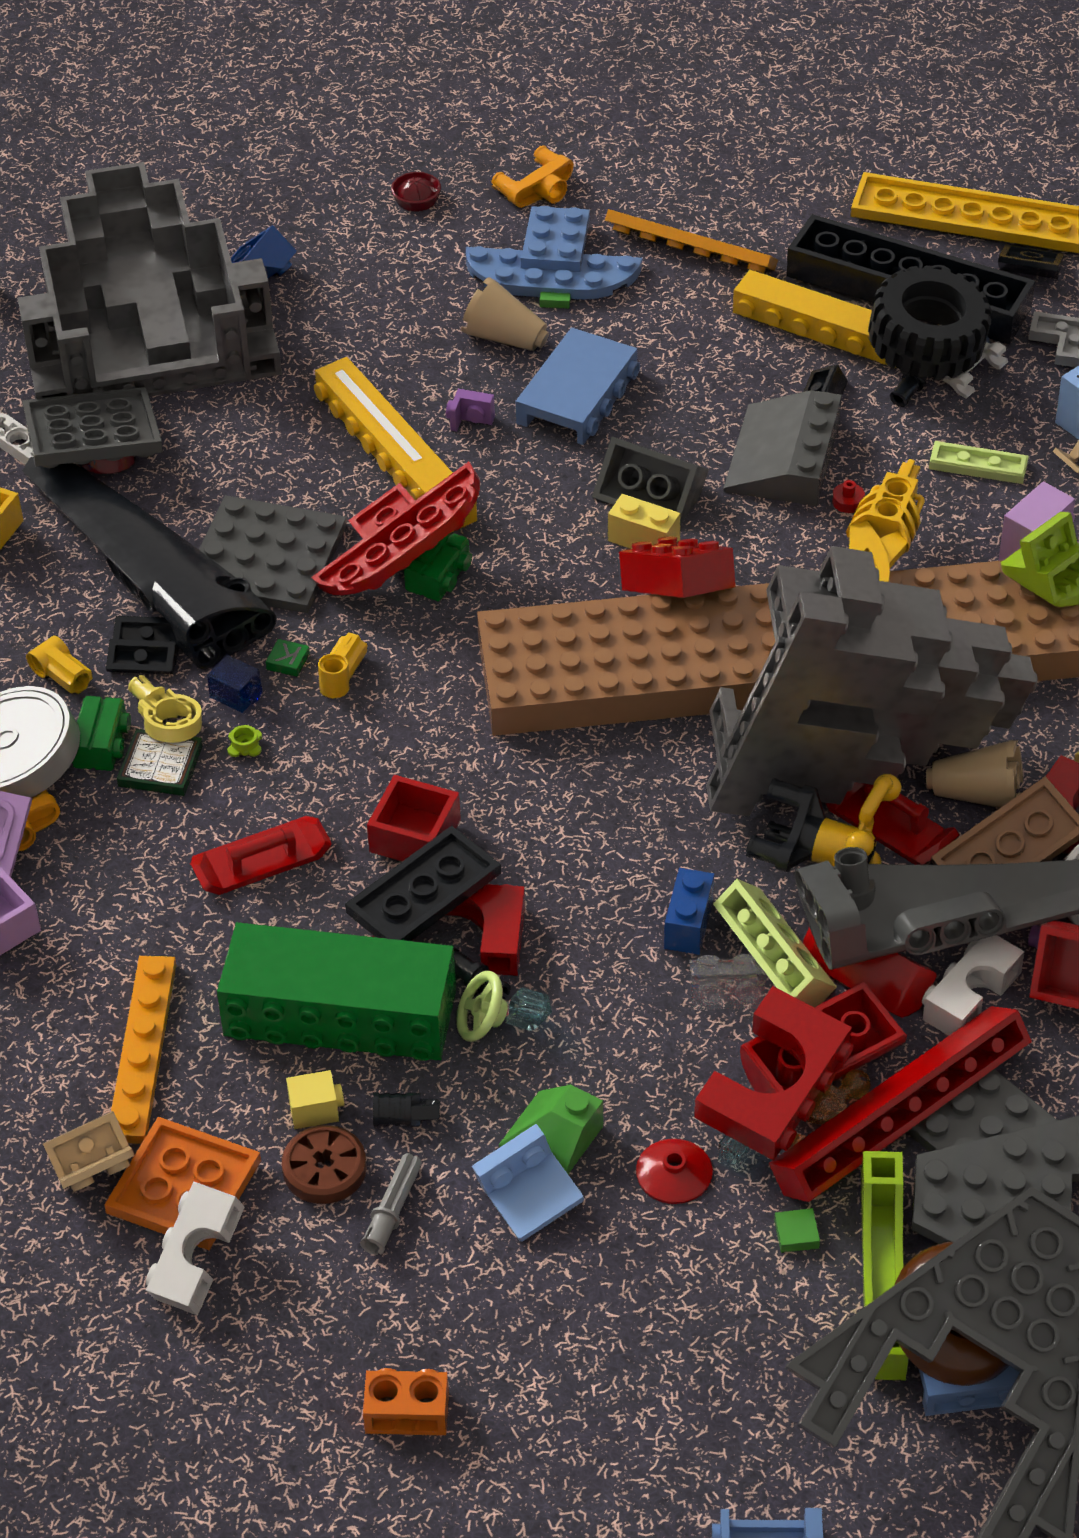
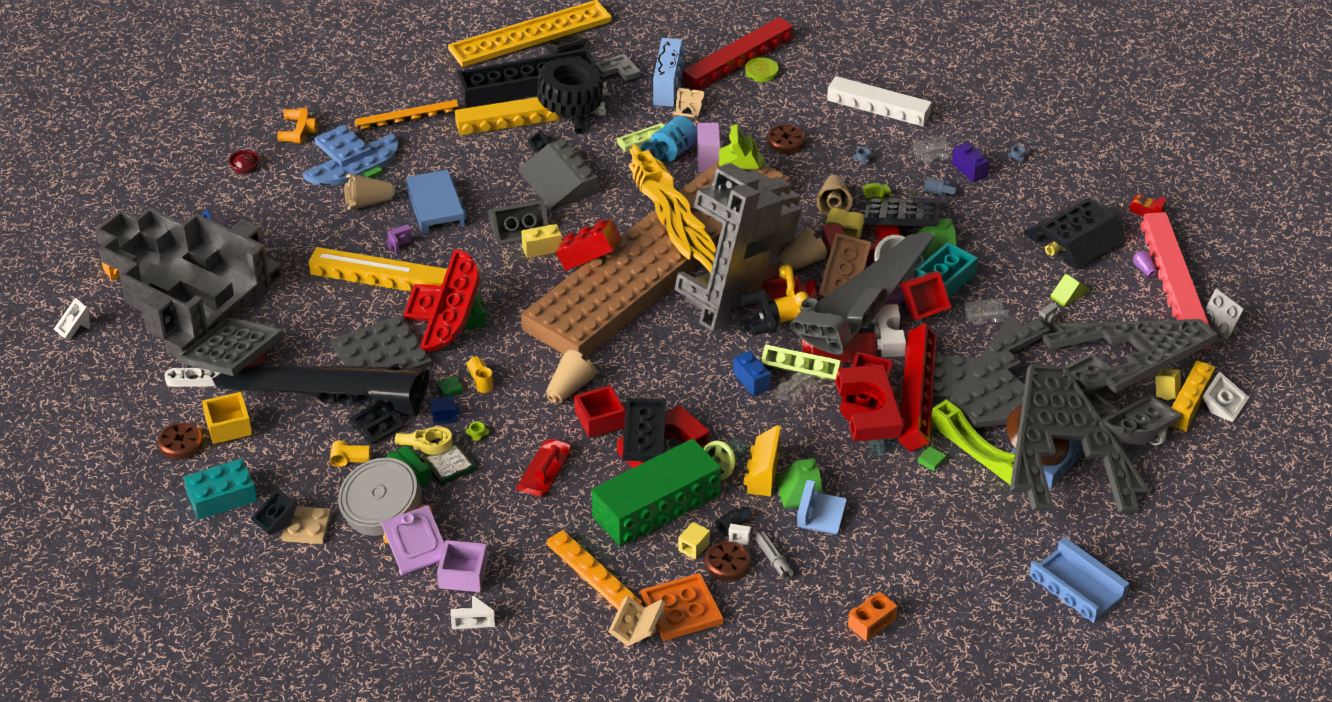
camera: 45 degrees left, 5 degrees down
(201, 1216) = (729, 638): white arch -> none
(380, 1137) = (740, 534): none -> white tile
(434, 746) = (570, 376): none -> tan cone
(538, 1059) = (763, 463): none -> yellow slope
(669, 1182) = (860, 471): red dish -> none
(847, 496) = (608, 181): red tile -> none
(985, 488) = (672, 139): none -> dark azure cylinder

